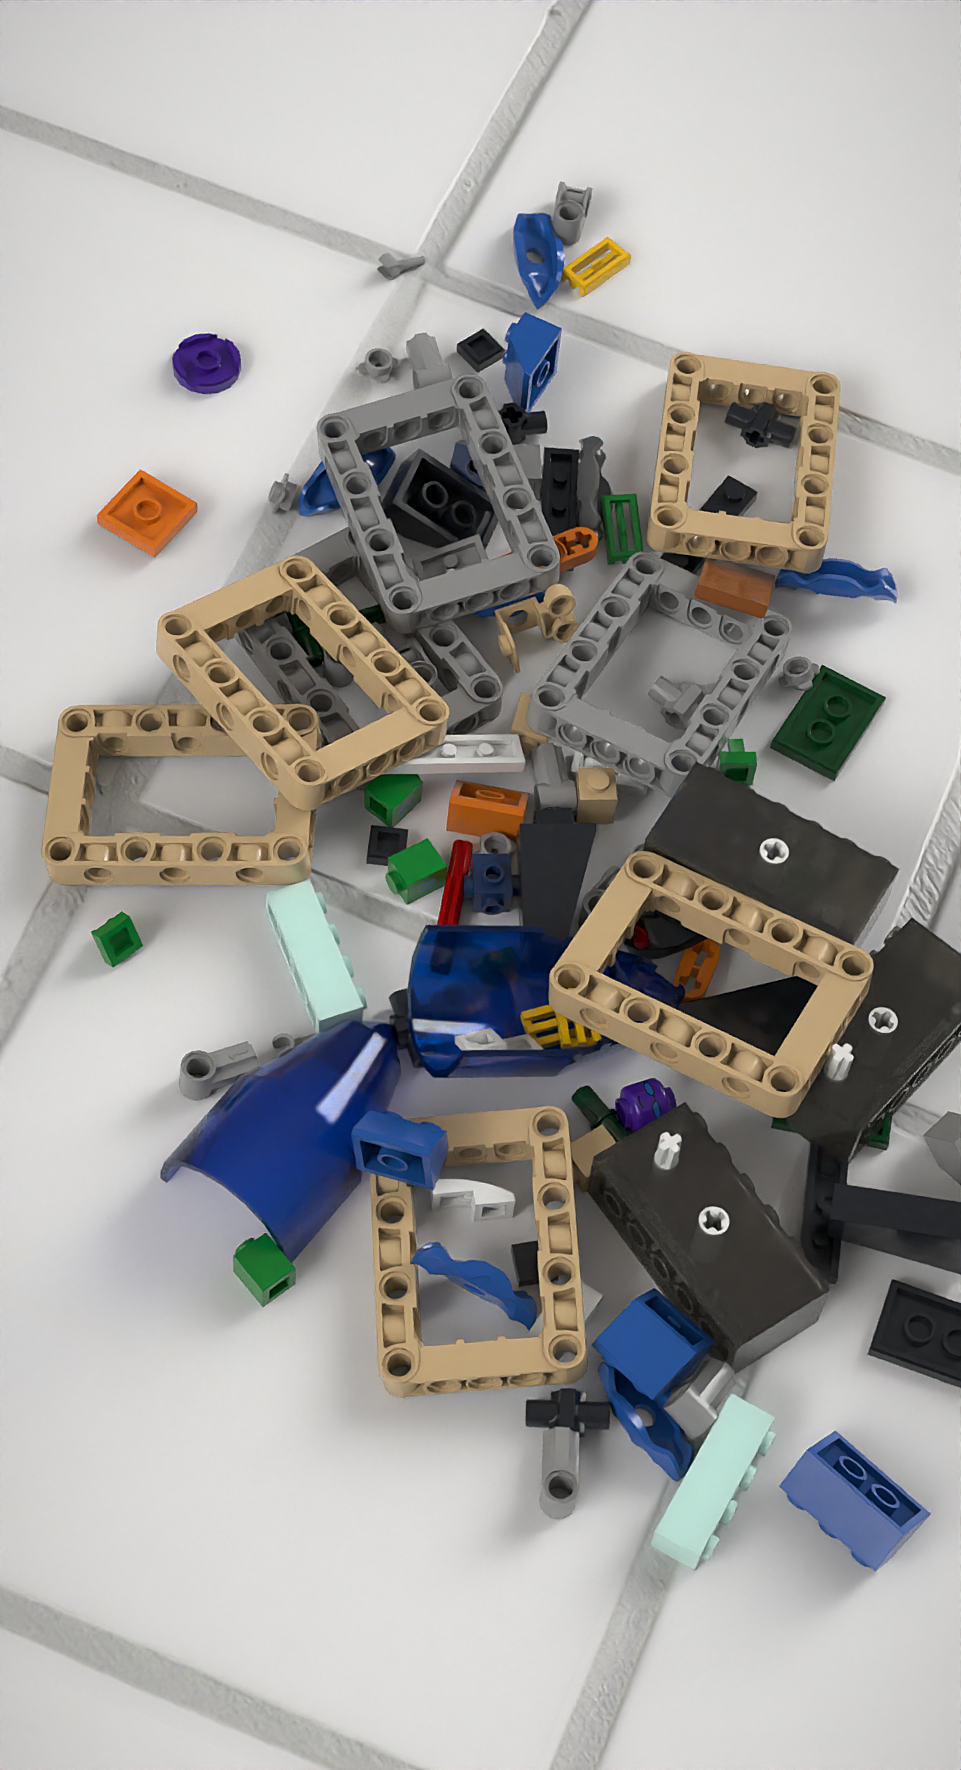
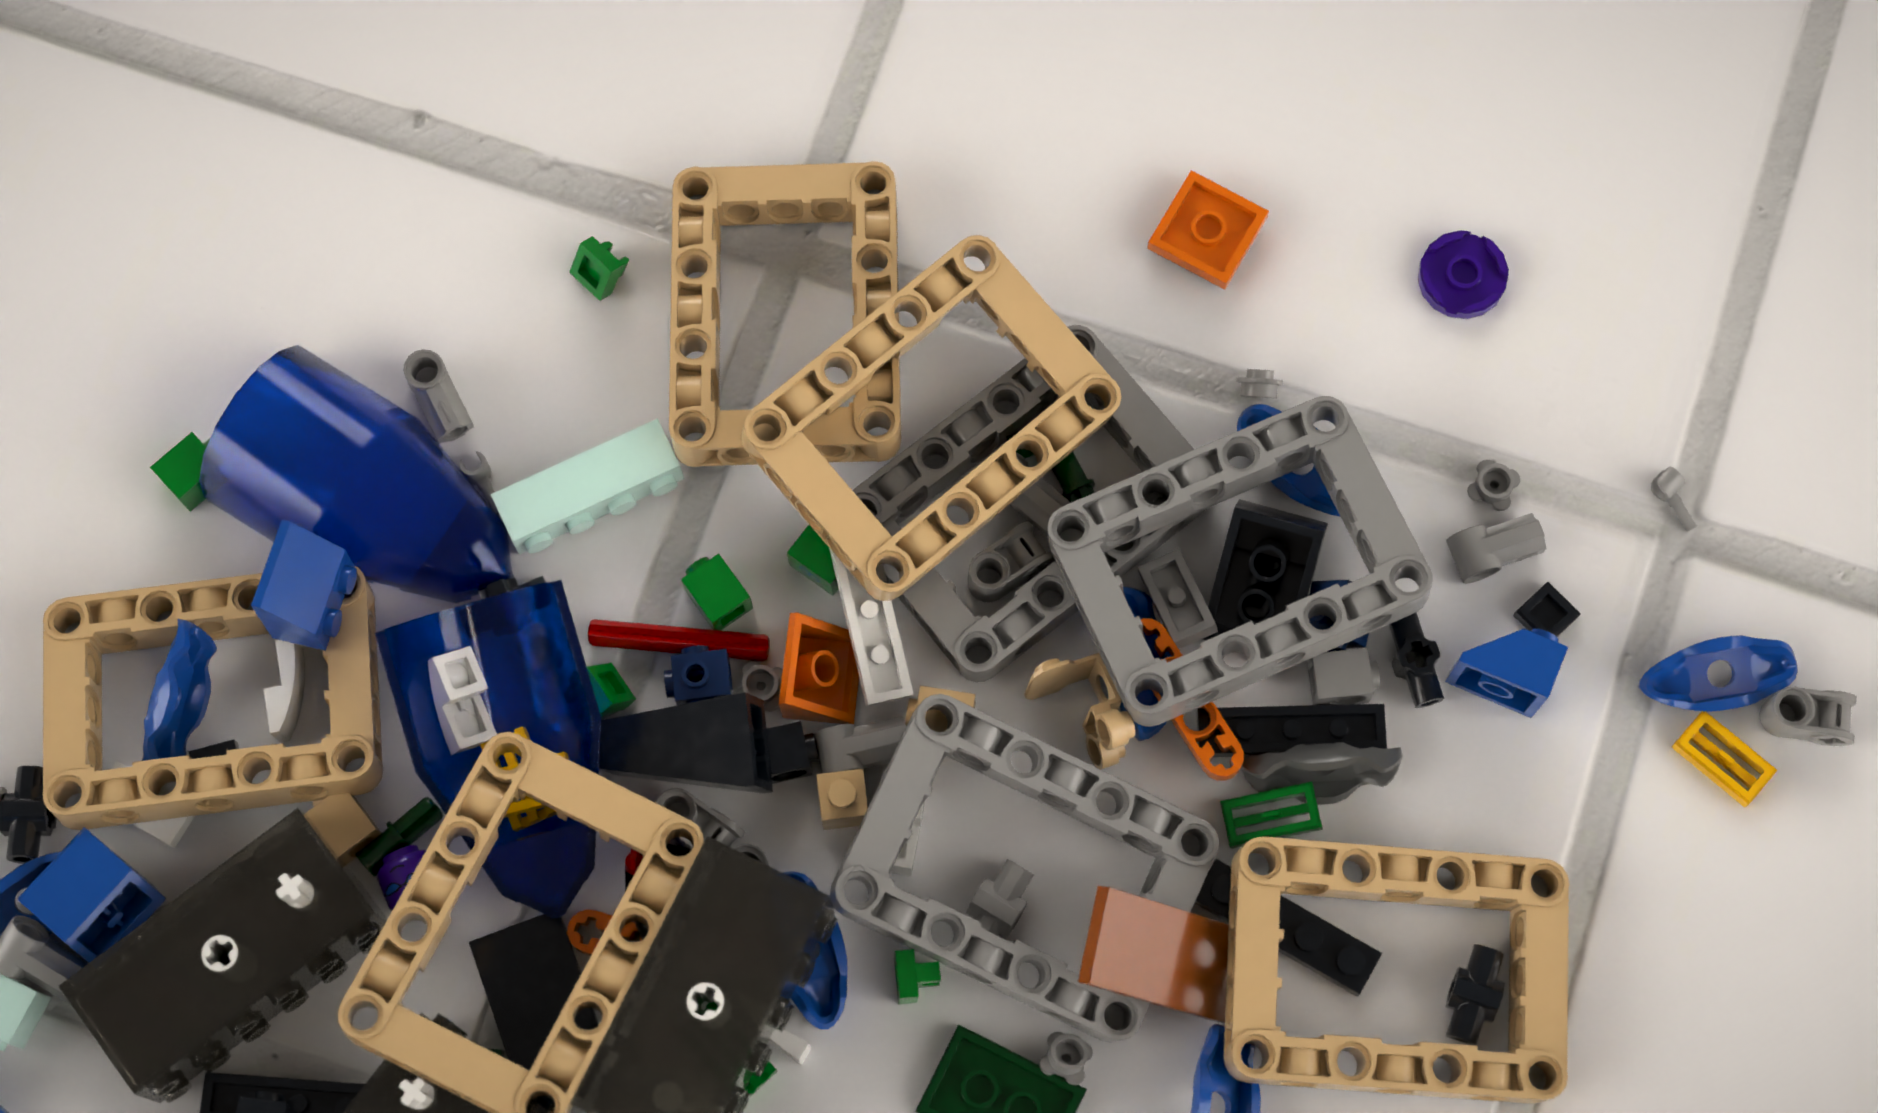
camera: 95 degrees right, 15 degrees up
(385, 843) = (759, 559): black tile -> none

